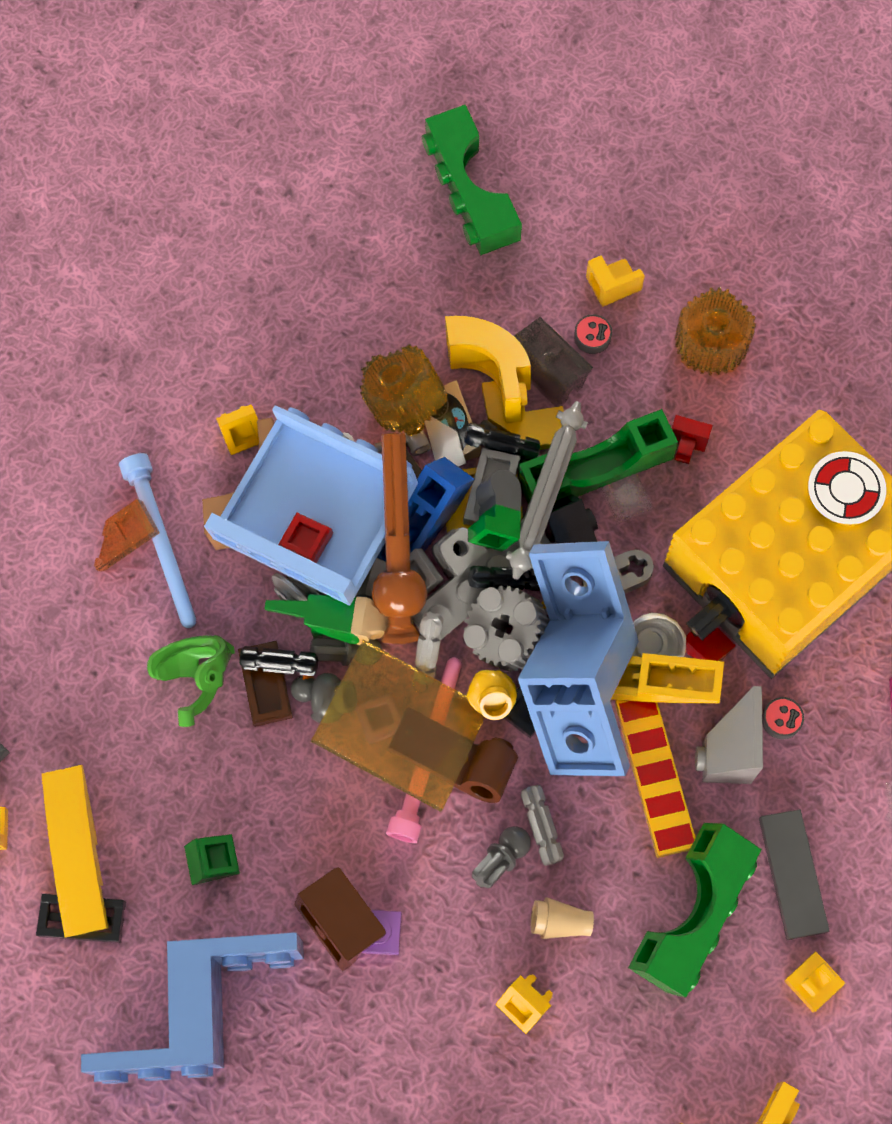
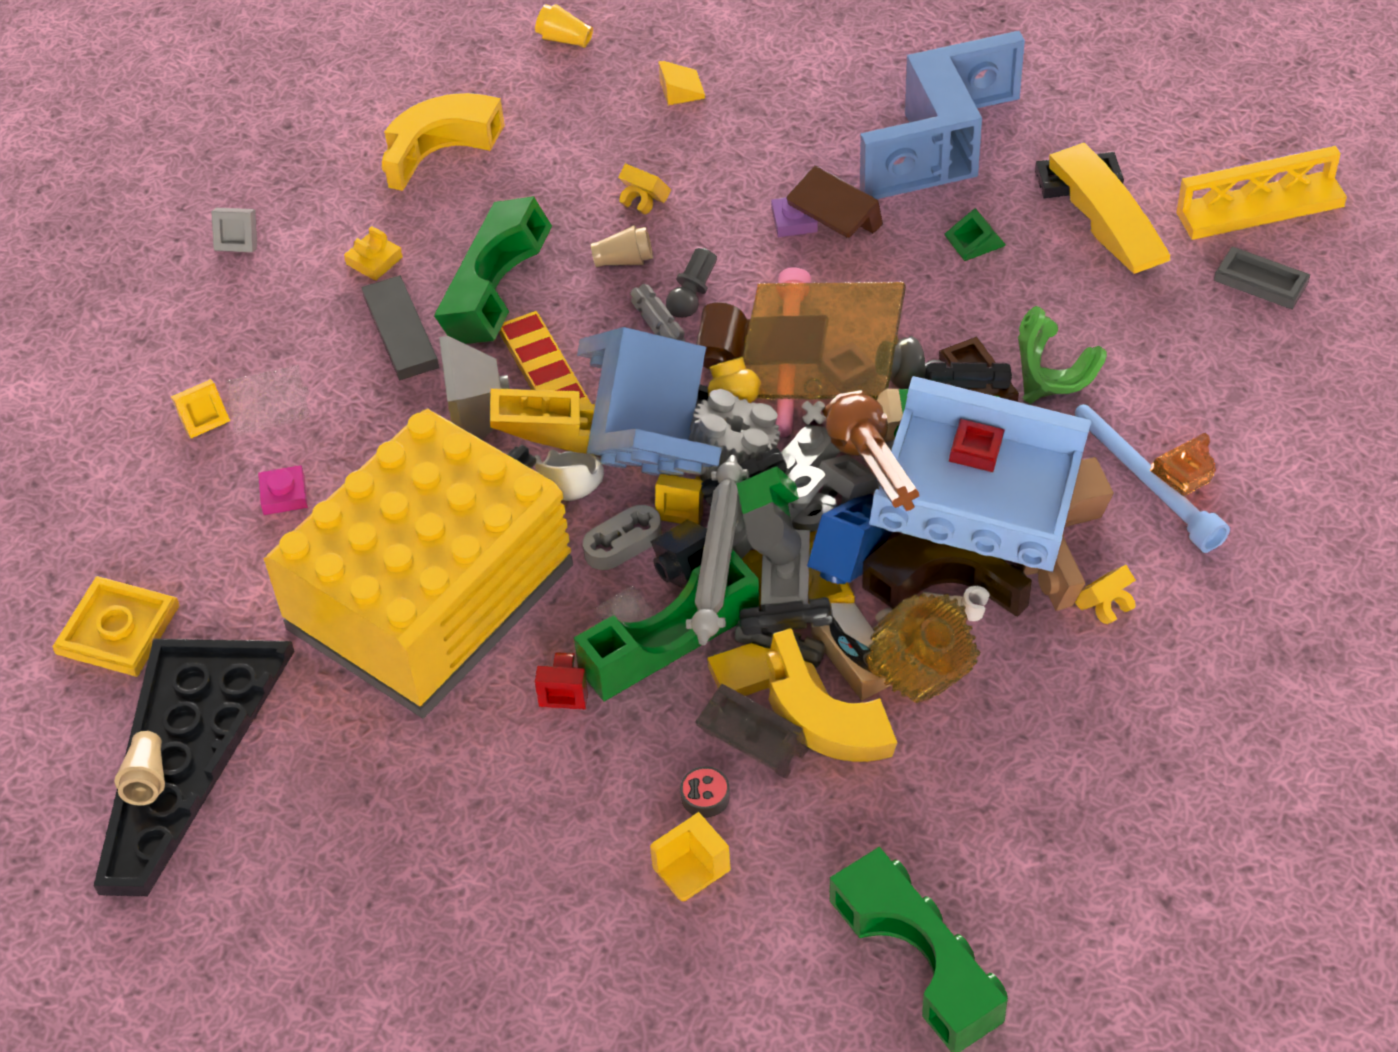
camera: 170 degrees right, 20 degrees down
(714, 332) = (547, 801): clear yellow brick -> none
(847, 487) = (367, 554): sticker -> none

